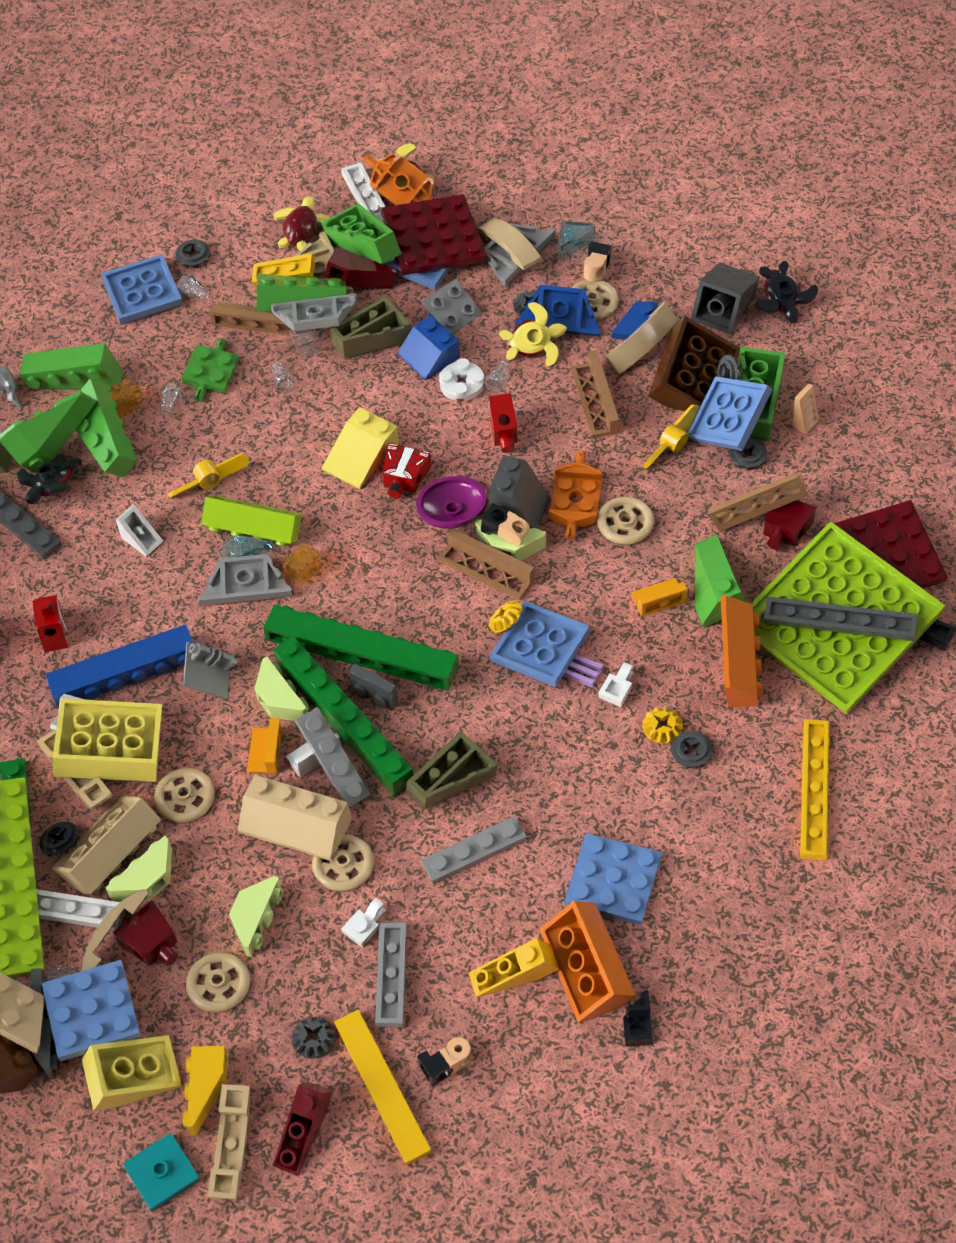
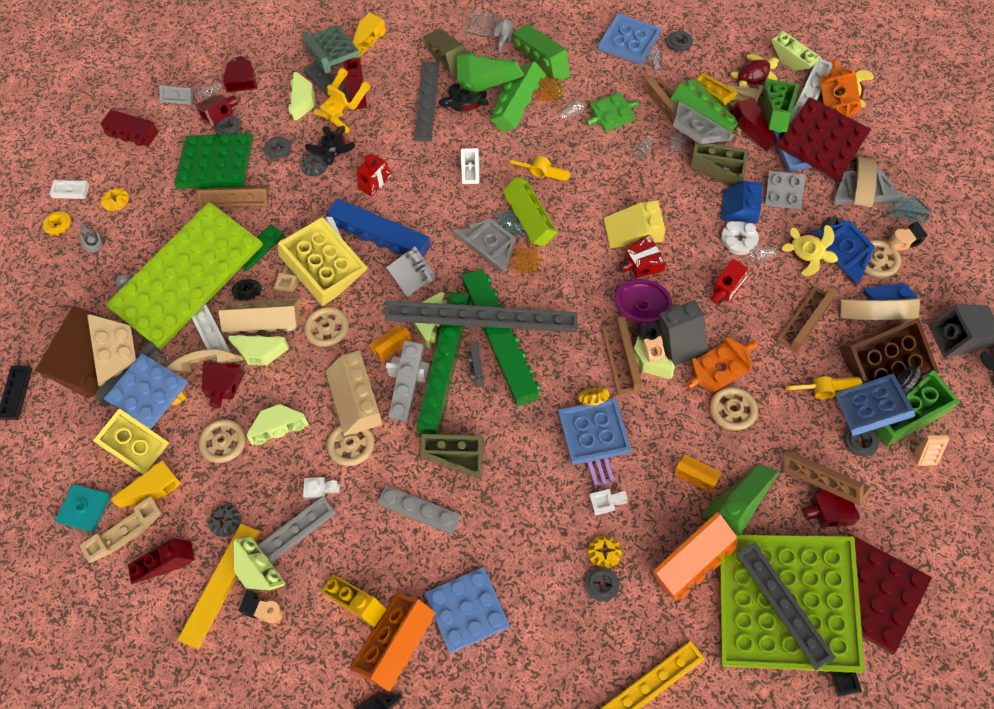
camera: 50 degrees right, 5 degrees up
(317, 180) = (794, 53): none -> yellowish green slope
(330, 642) = (480, 316): none -> dark grey plate
(400, 1033) = (254, 567): none -> yellowish green slope

